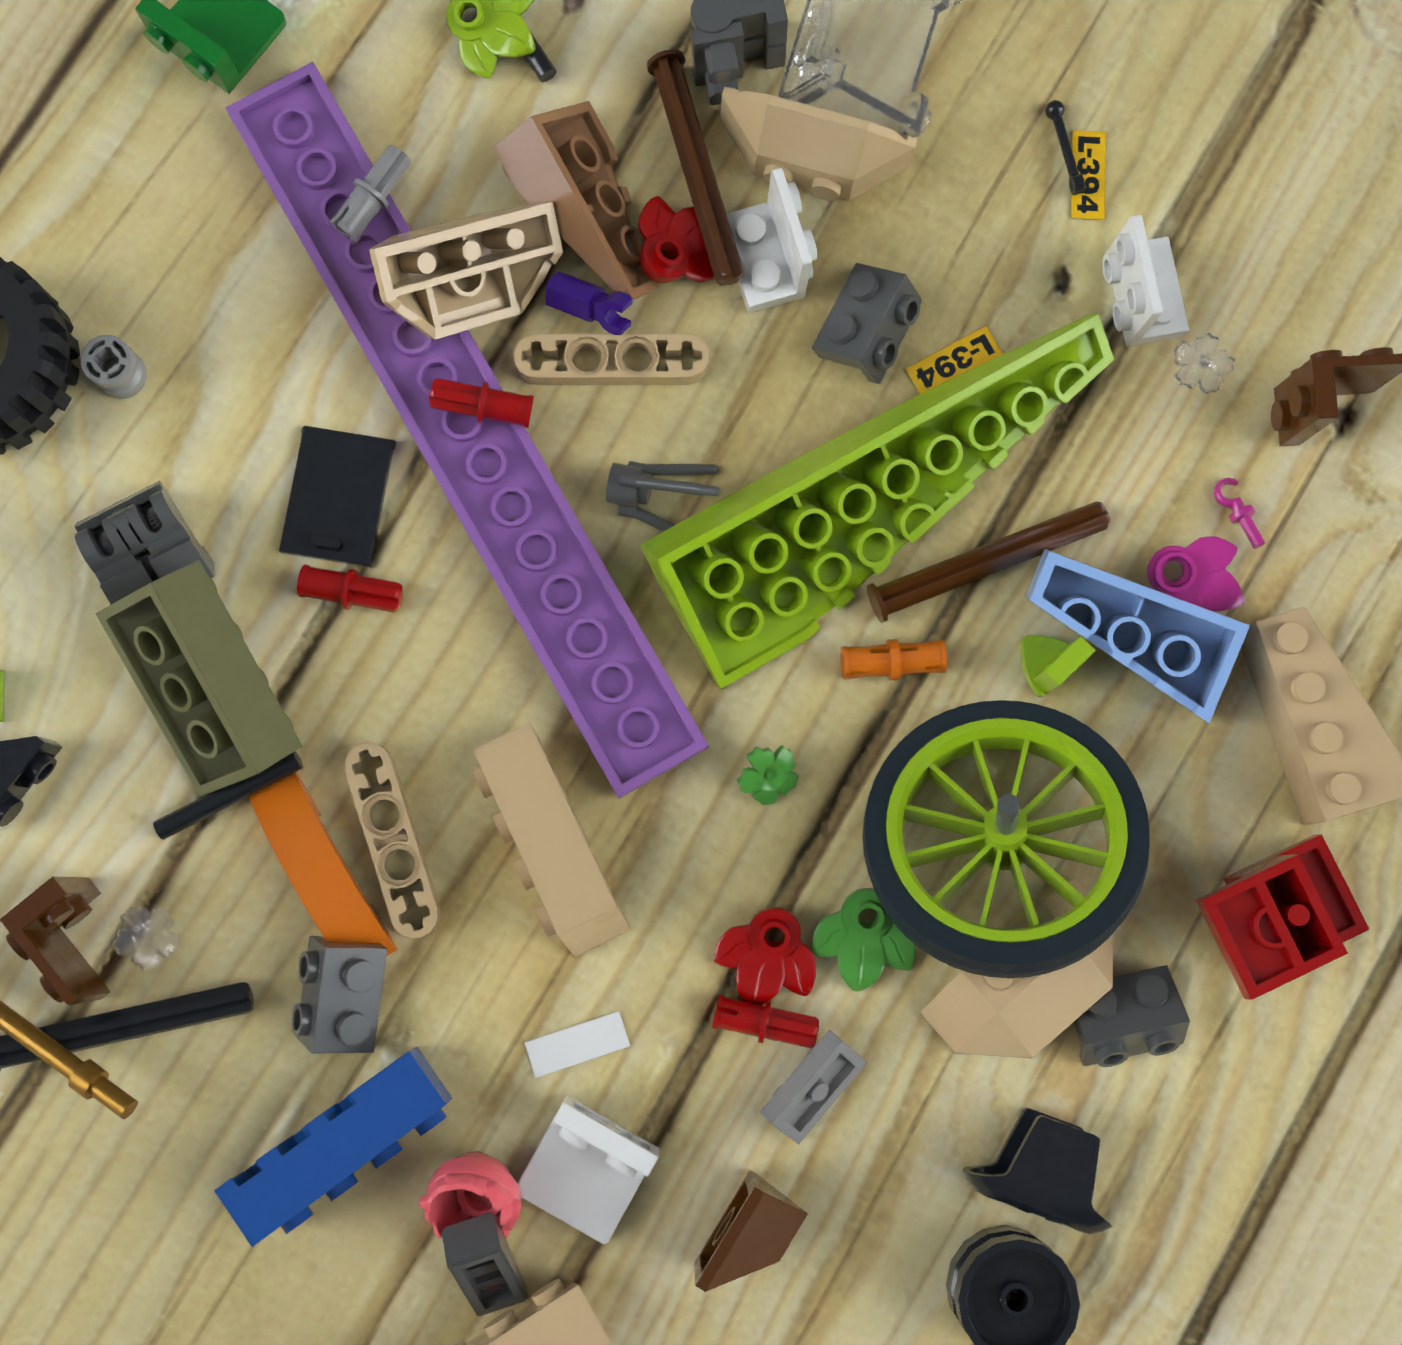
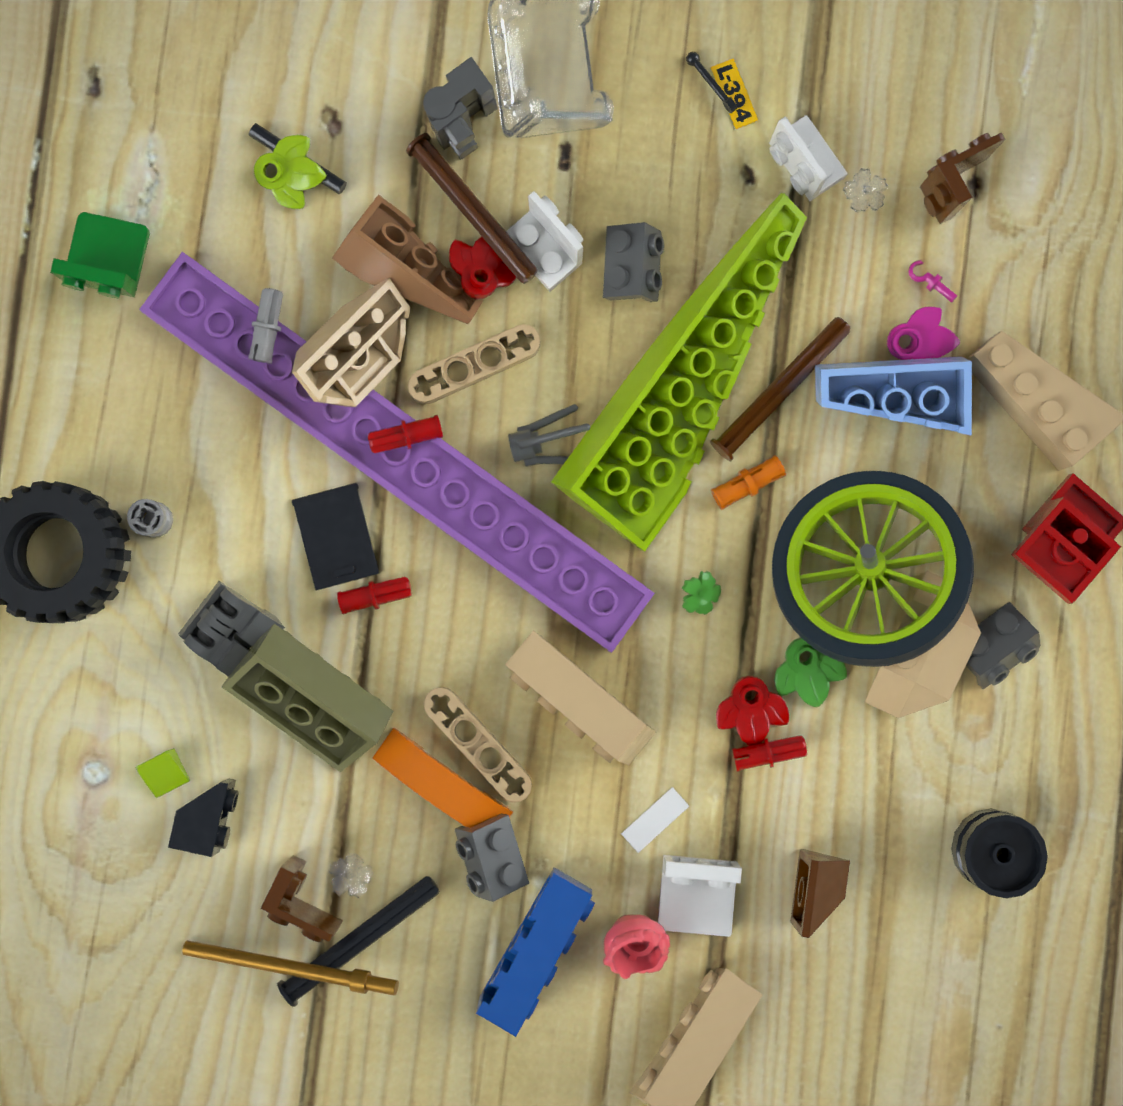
camera: 15 degrees left, 5 degrees up
(225, 797) = (353, 770): black bar -> none
(480, 1259) = (660, 982): dark grey slope -> none
(588, 302) = (442, 333): dark purple bar -> none
(813, 1087) = (817, 780): light grey plate -> none
(814, 146) = (542, 161): tan wedge -> none
(954, 360) = (700, 263): yellow sticker -> none
(1045, 1171) = (986, 767): black piece -> none
(1051, 661) = (851, 438): lime tile -> none

